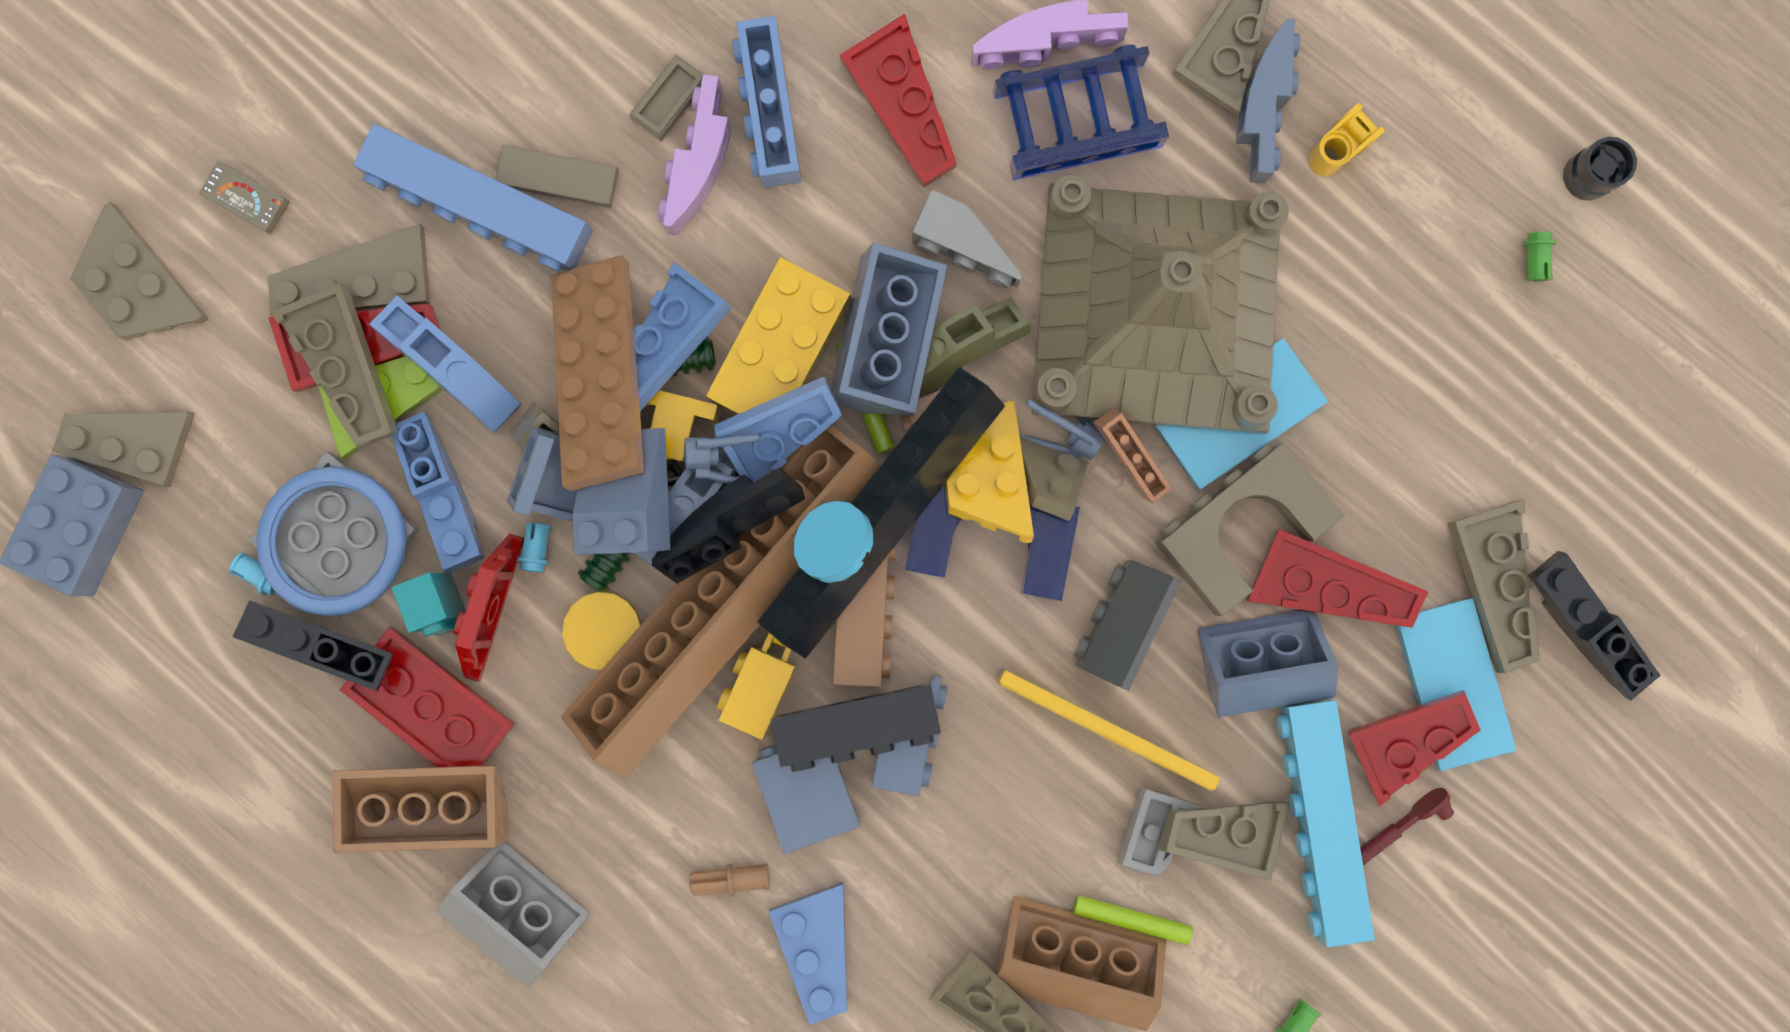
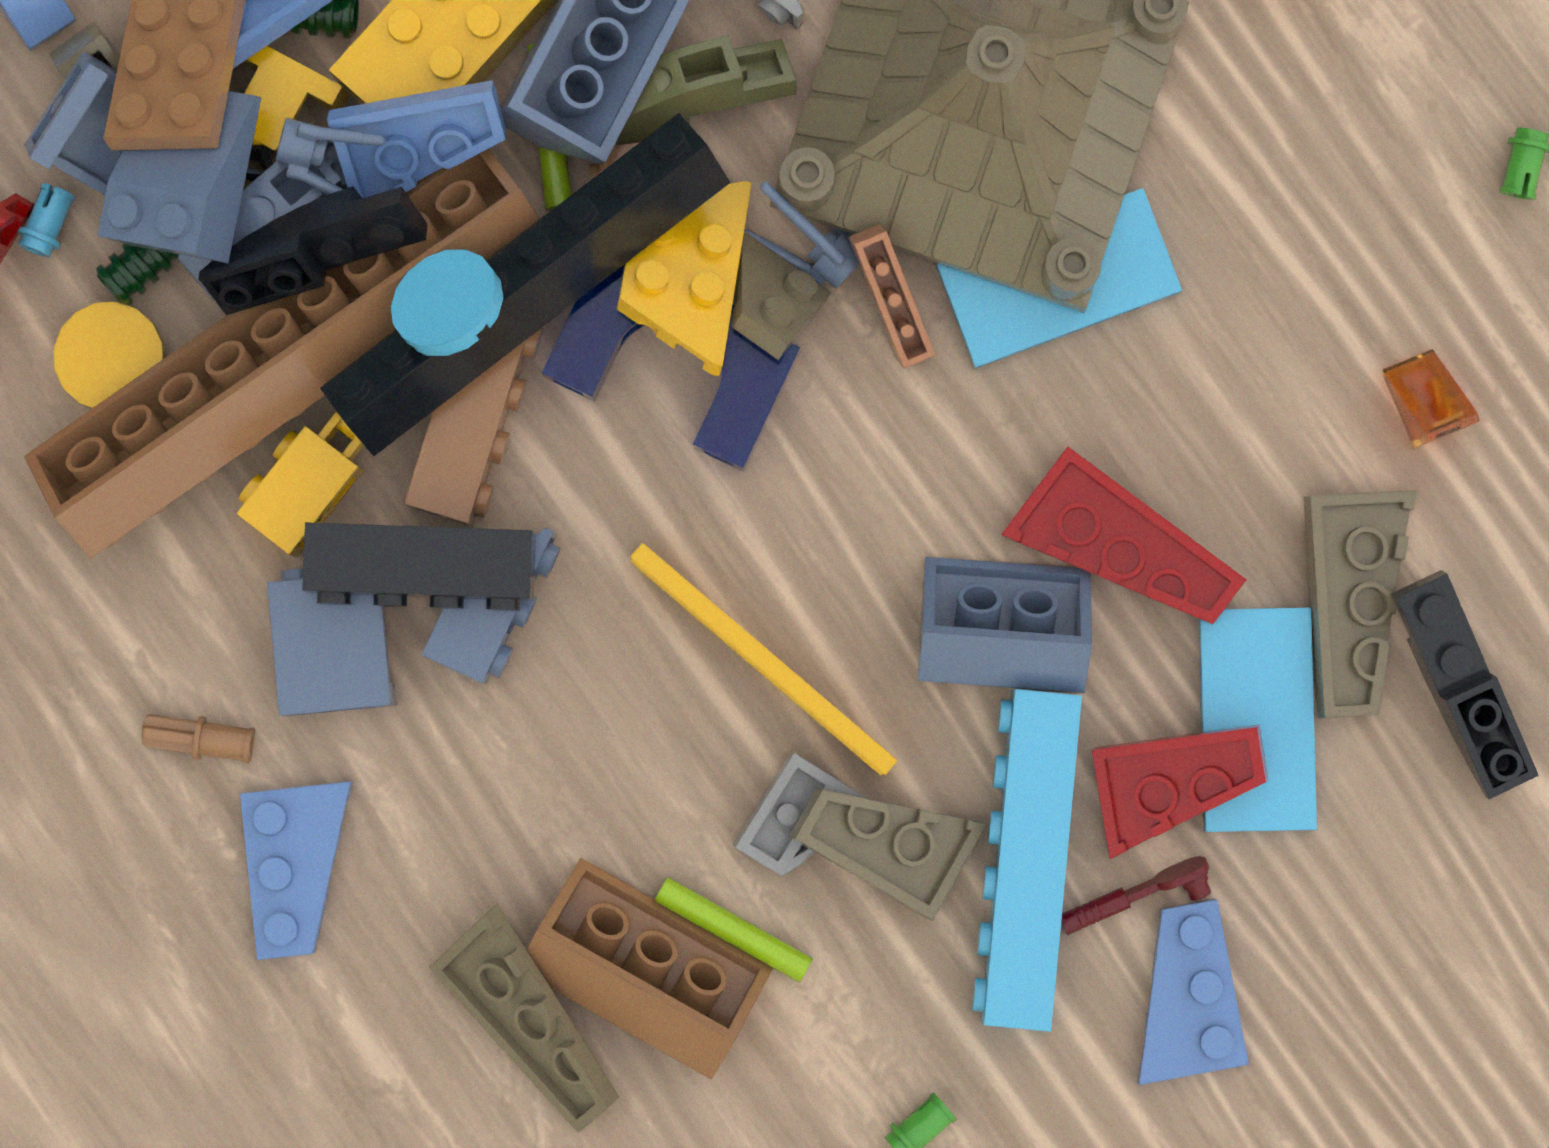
camera: 15 degrees right, 0 degrees up
(1126, 623) = (822, 519): dark grey slope -> none
(1273, 477) = (1076, 374): dark tan arch -> none
(1460, 889) = (1192, 1000): none -> medium blue wing
(1518, 436) = (1428, 399): none -> clear orange slope

